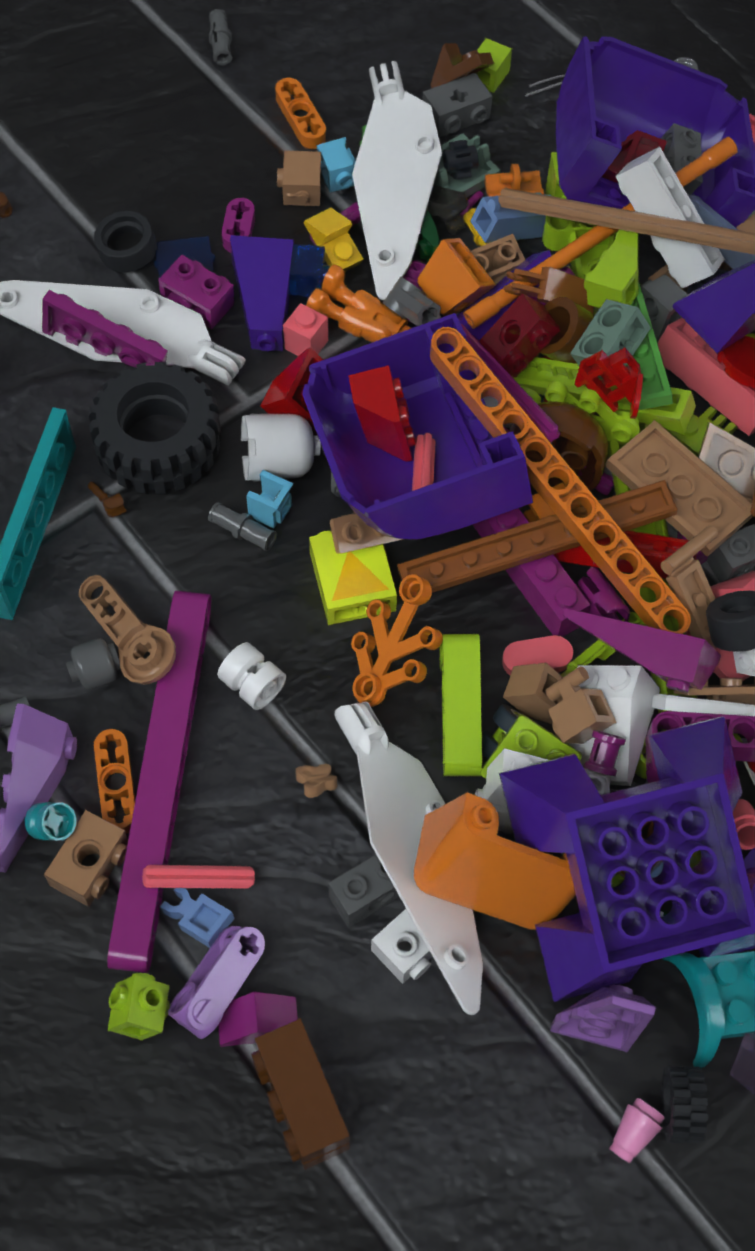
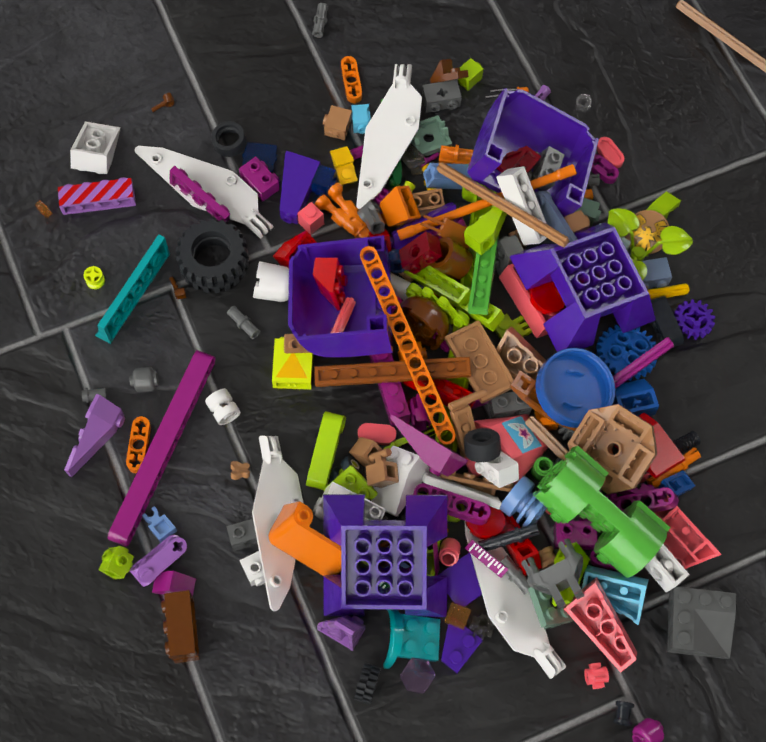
camera: 15 degrees right, 5 degrees up
(59, 821) = (101, 461): teal wheel -> none
(90, 837) = (115, 470): medium nougat brick -> none
(130, 634) = (165, 367): medium nougat beam -> none
(198, 876) = (164, 505): coral axle -> none
(232, 224) = (291, 140): magenta beam -> none
(273, 502) = (263, 313): medium azure window -> none
(391, 646) = (285, 425): orange plant -> none
(460, 159) = (428, 134): black gear -> none
(531, 408) = (400, 279): magenta axle -> none
(604, 753) = (386, 496): magenta bush -> none
(611, 330) = (465, 270): sand green brick -> none
(613, 371) = (458, 296): red piece -> none
(636, 1130) = (343, 687): bright pink cone -> none

